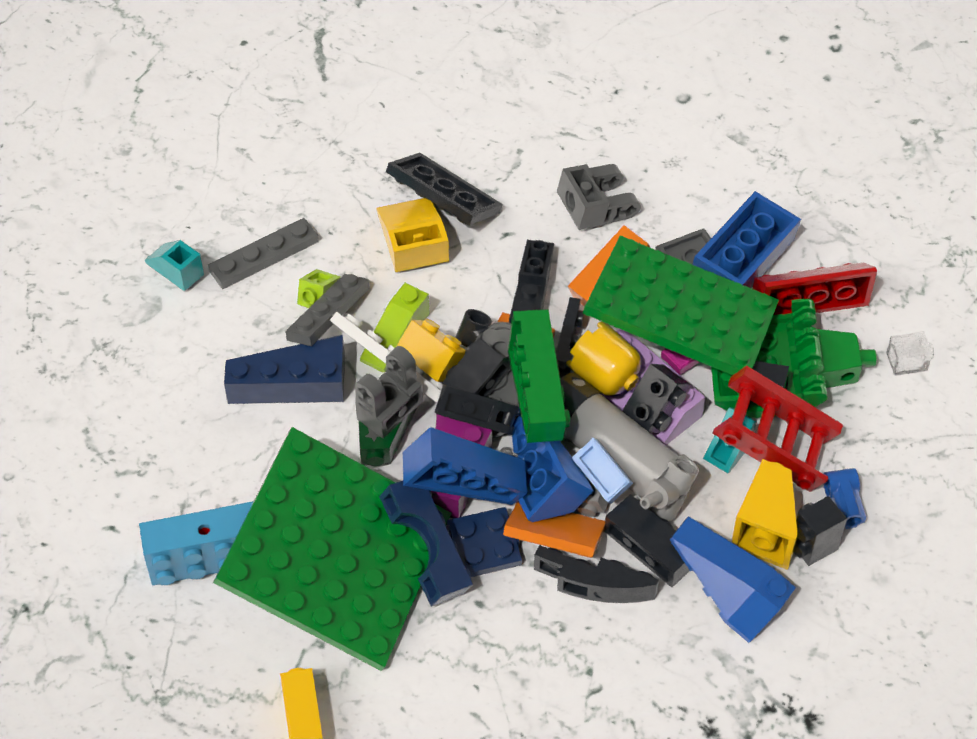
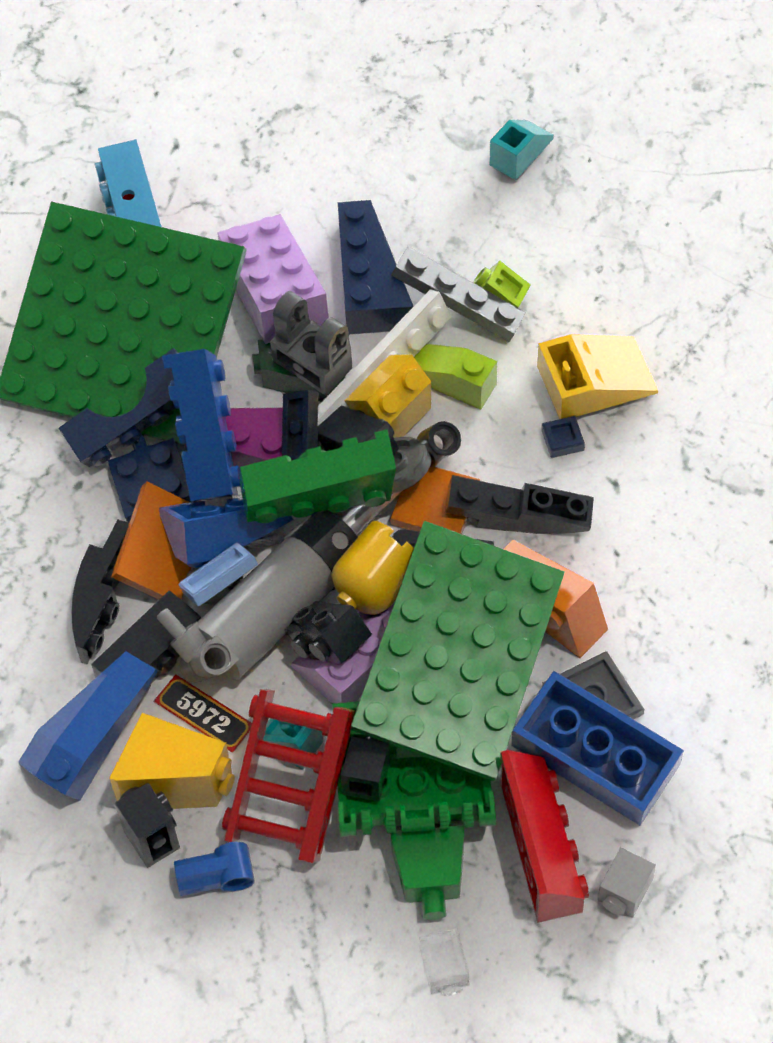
camera: 90 degrees right, 5 degrees up
(263, 253) = (554, 233): dark grey plate -> none
(321, 414) = (271, 269): none -> lavender brick
(444, 188) = (664, 400): black plate -> none
(463, 261) = (563, 437): none -> dark blue tile
(585, 199) = (668, 555): dark grey brick -> none
(707, 502) = (203, 712): none -> sticker
(843, 245) = (626, 883): none -> light grey brick

